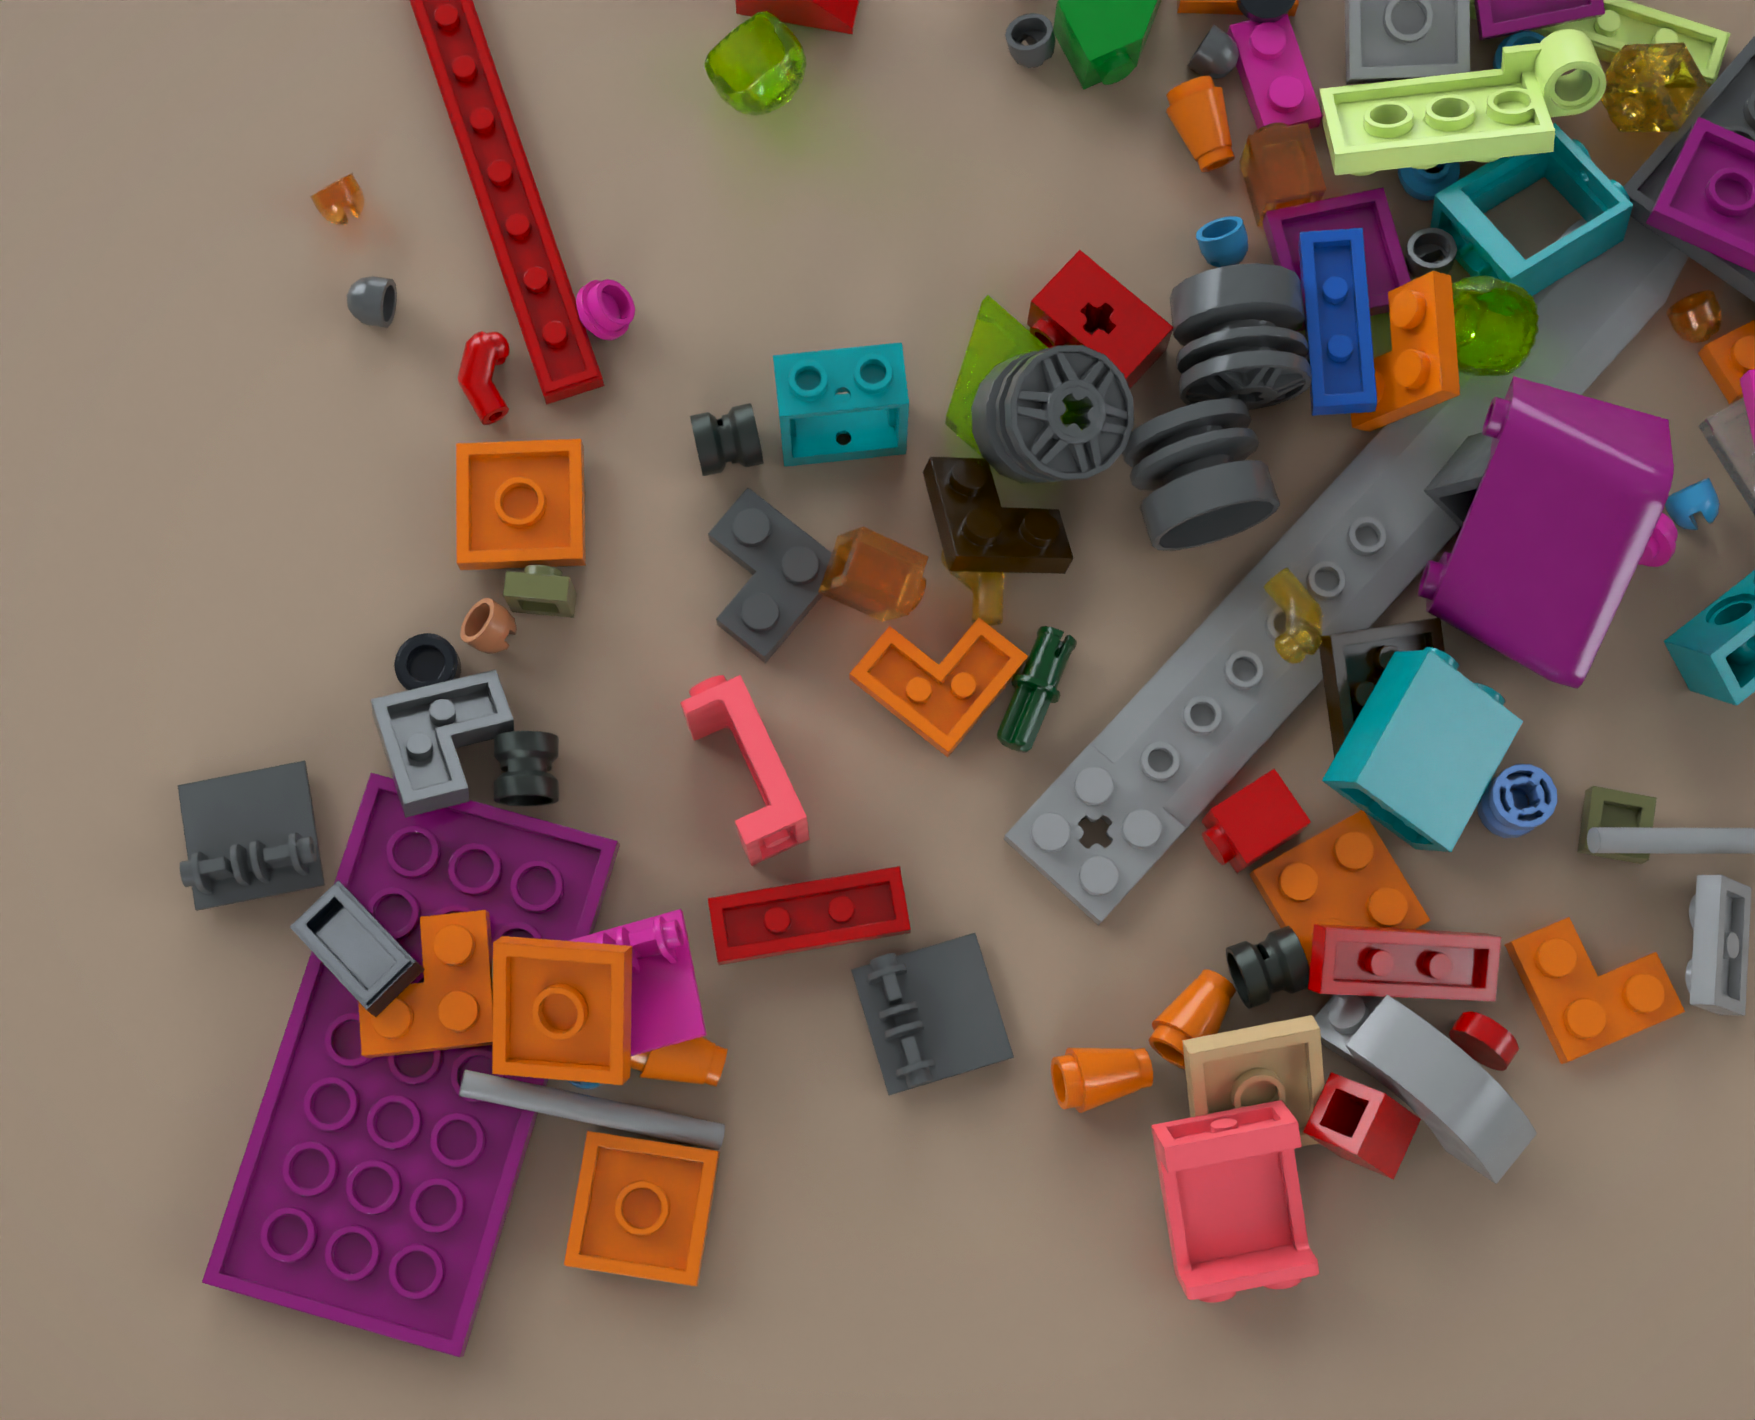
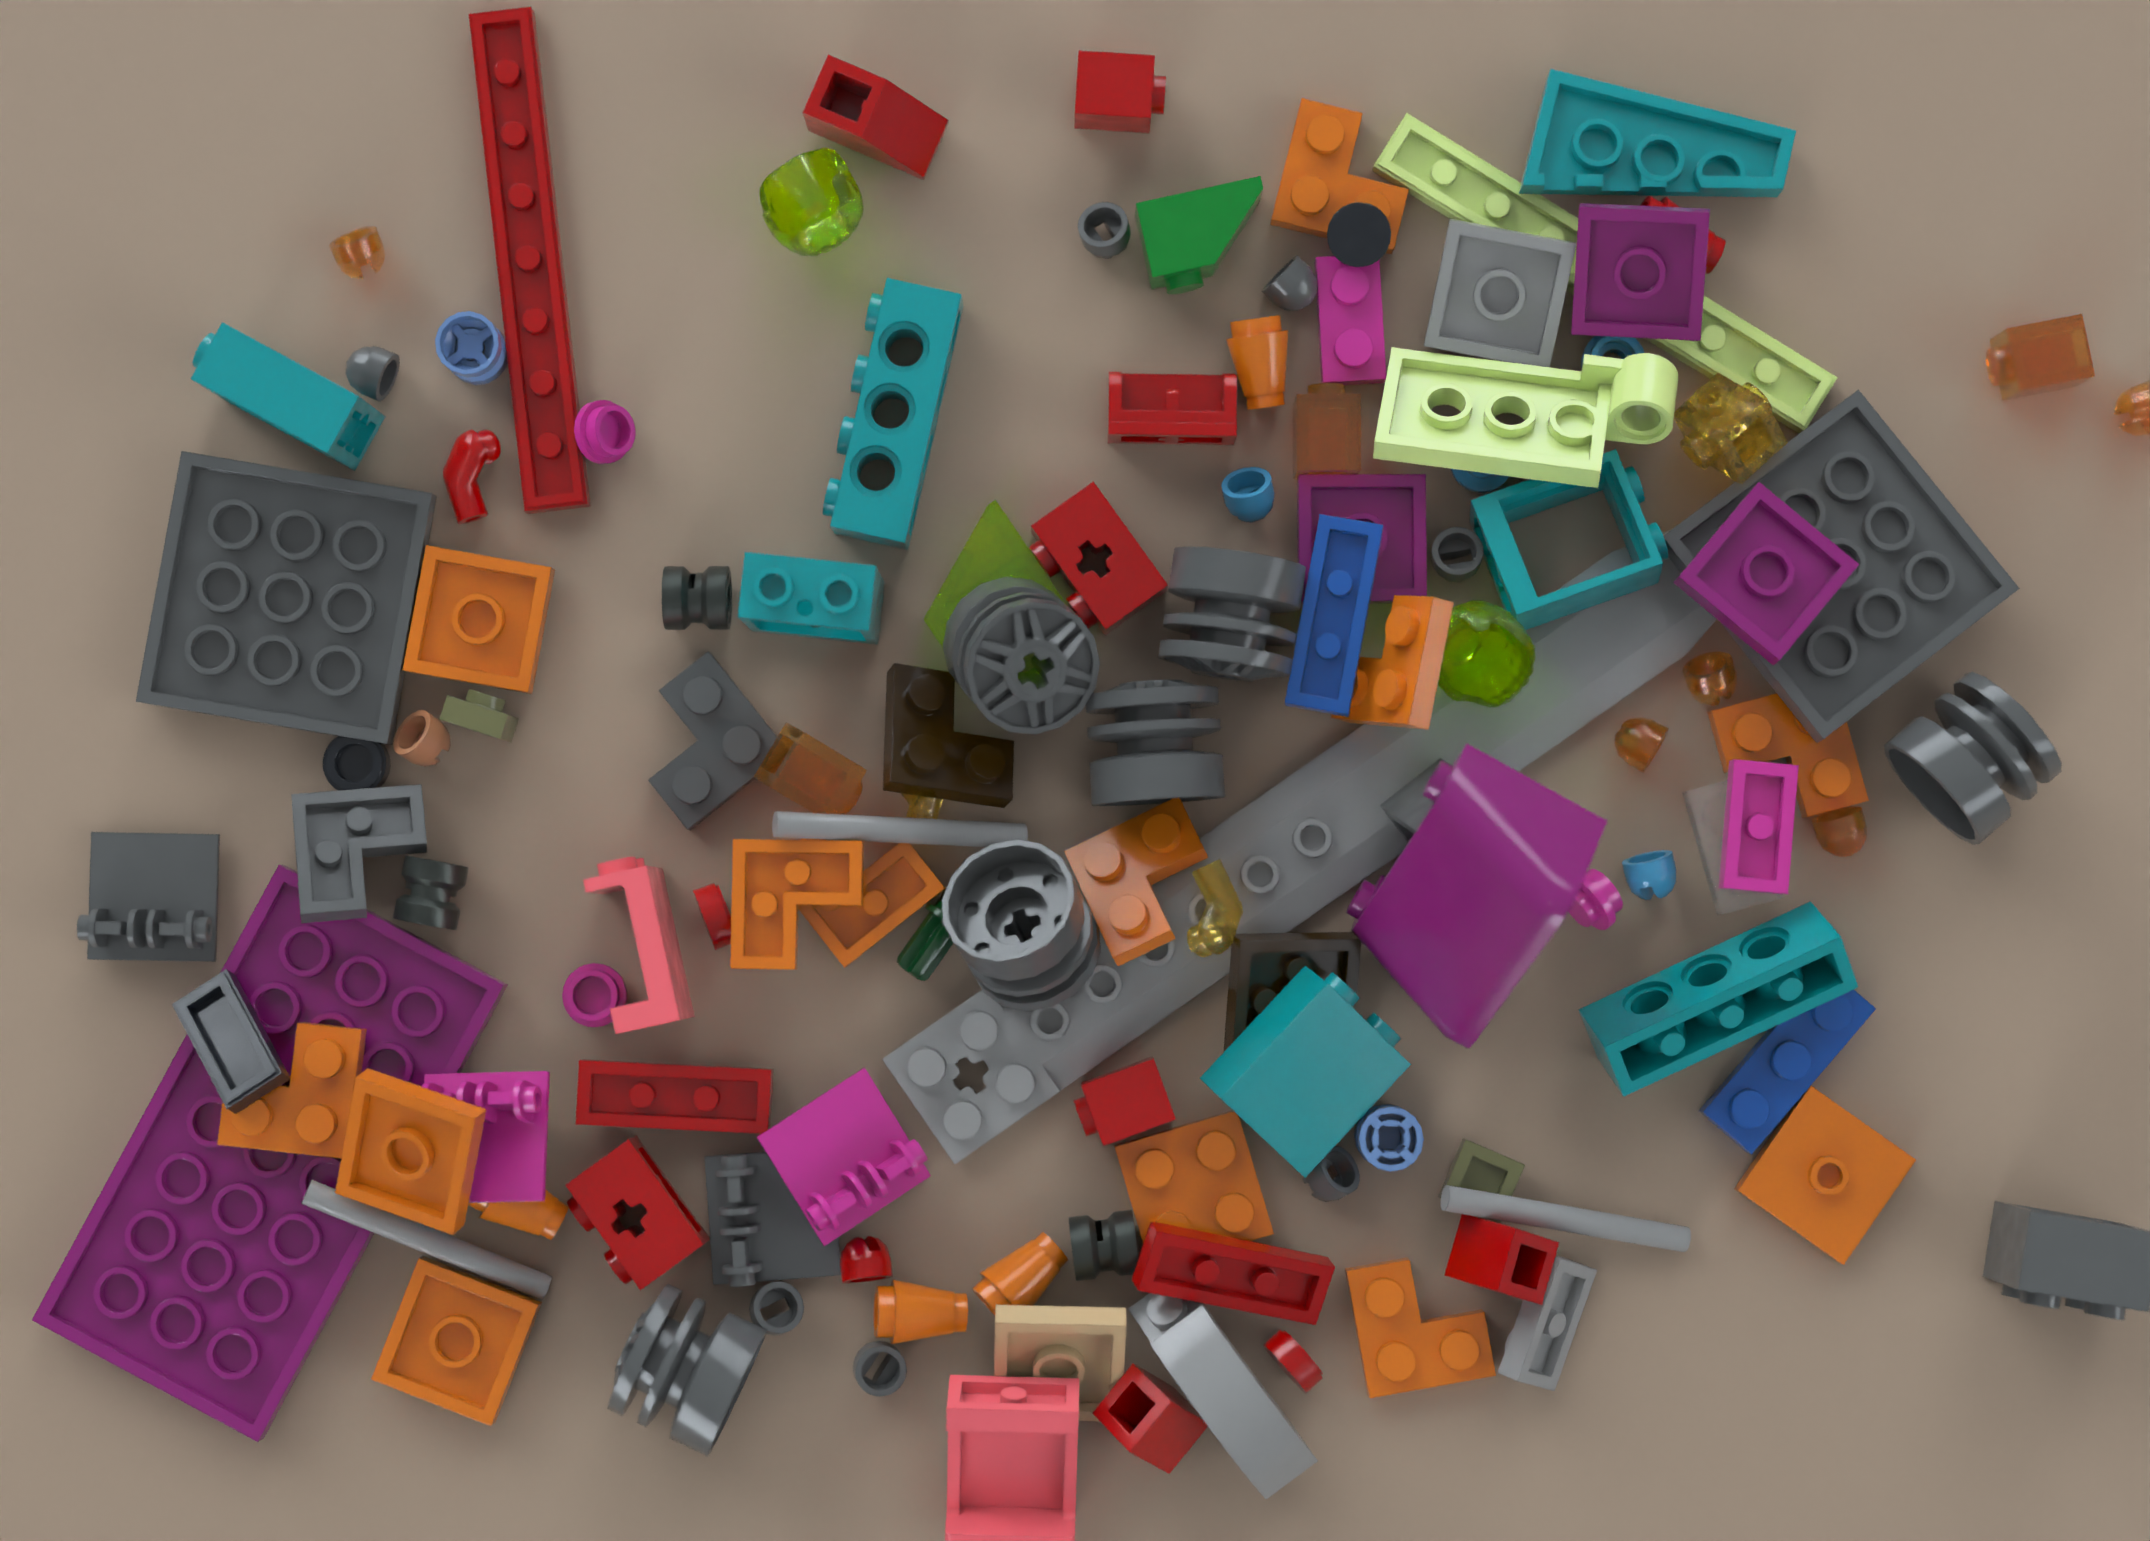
camera: 15 degrees right, 10 degrees up
(296, 328) = (286, 395): none -> teal window
(329, 524) = (285, 598): none -> dark grey plate
(464, 245) = (464, 337): none -> medium blue wheel
(707, 836) = (591, 994): none -> dark pink plate
(781, 1002) = (636, 1178): none -> red brick
(810, 732) = (714, 914): none -> red tile
(866, 675) = (772, 881): none -> orange plate
(882, 146) = (933, 320): none -> teal brick
(885, 1177) = (686, 1368): none -> dark grey wheel
(950, 1090) = (781, 1322): none -> dark grey hinge
(971, 608) = (895, 829): none -> light grey bar
(992, 936) = (844, 1156): none -> dark pink hinge
(1035, 1038) = (865, 1261): none -> red hinge
(1086, 1144) = (889, 1374): none -> dark grey hinge
(1116, 664) = (1021, 925): none -> dark grey wheel
(1133, 185) = (1172, 409): none -> red hinge
(1194, 606) = (1123, 864): none -> orange plate
(1473, 853) = (1345, 1173): none -> dark grey hinge
(1646, 386) = (1639, 741): none -> clear orange hinge
(1662, 890) = (1501, 1258): none -> red brick

